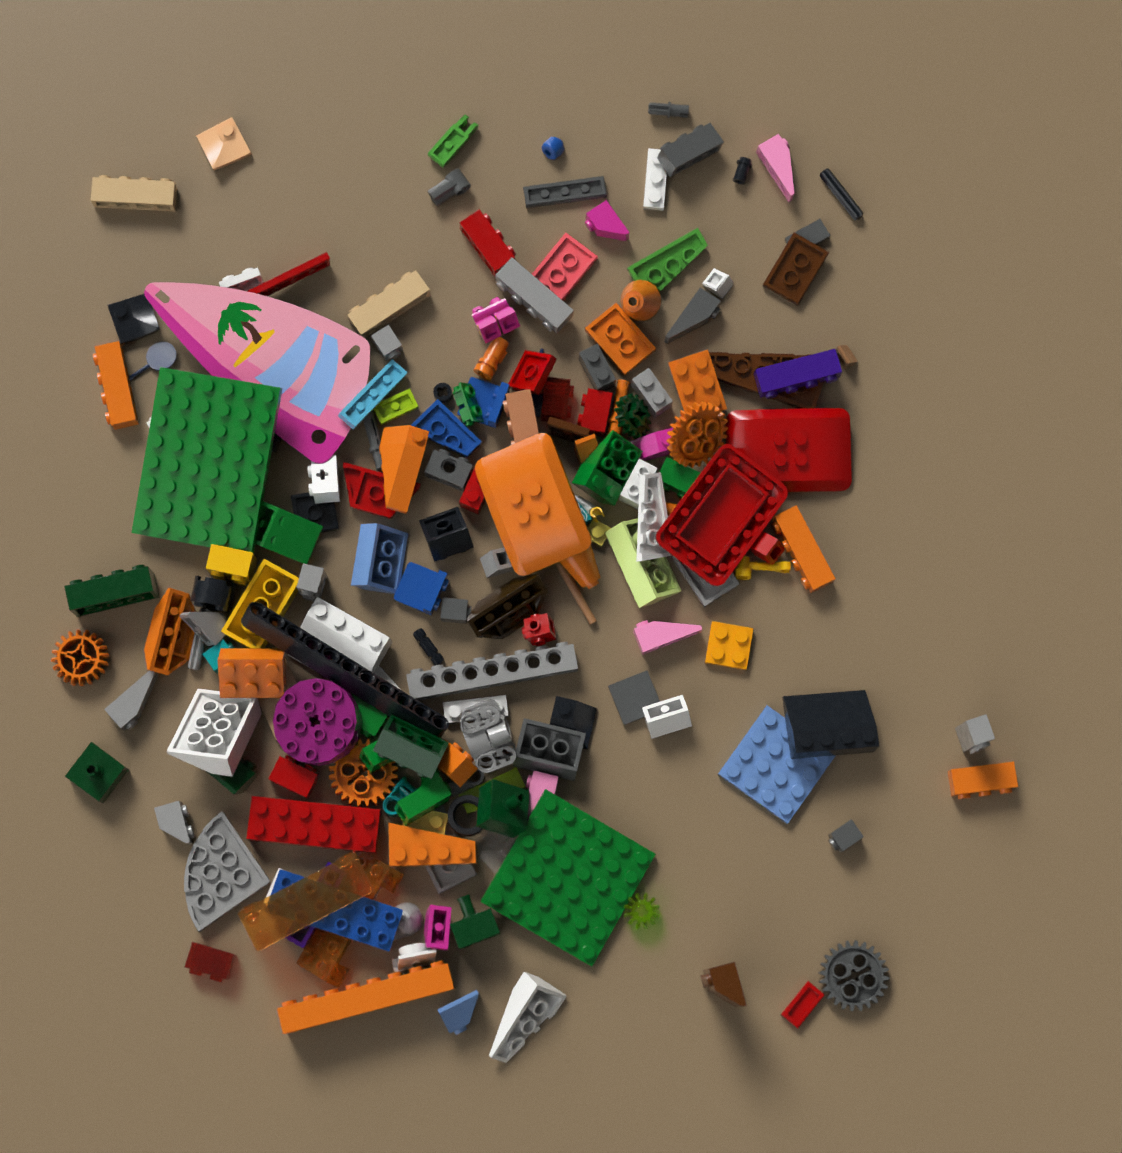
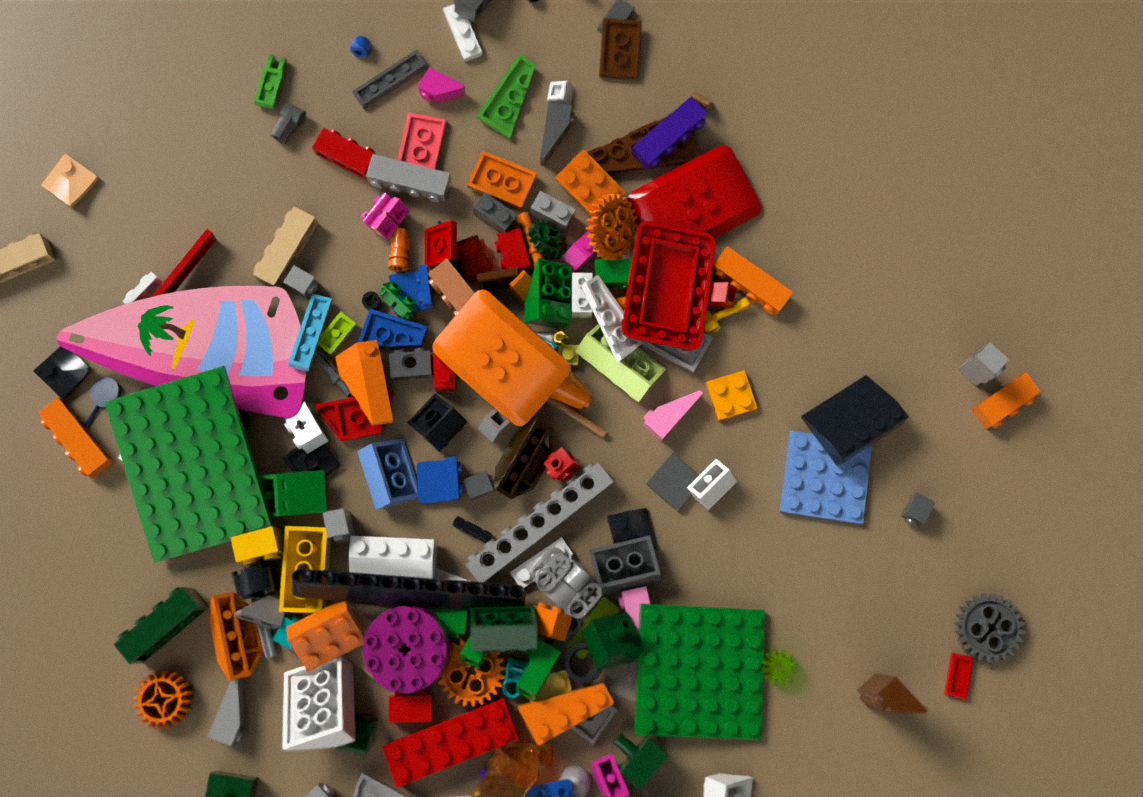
camera: 25 degrees left, 0 degrees up
(647, 299) = (510, 135): orange cone -> none

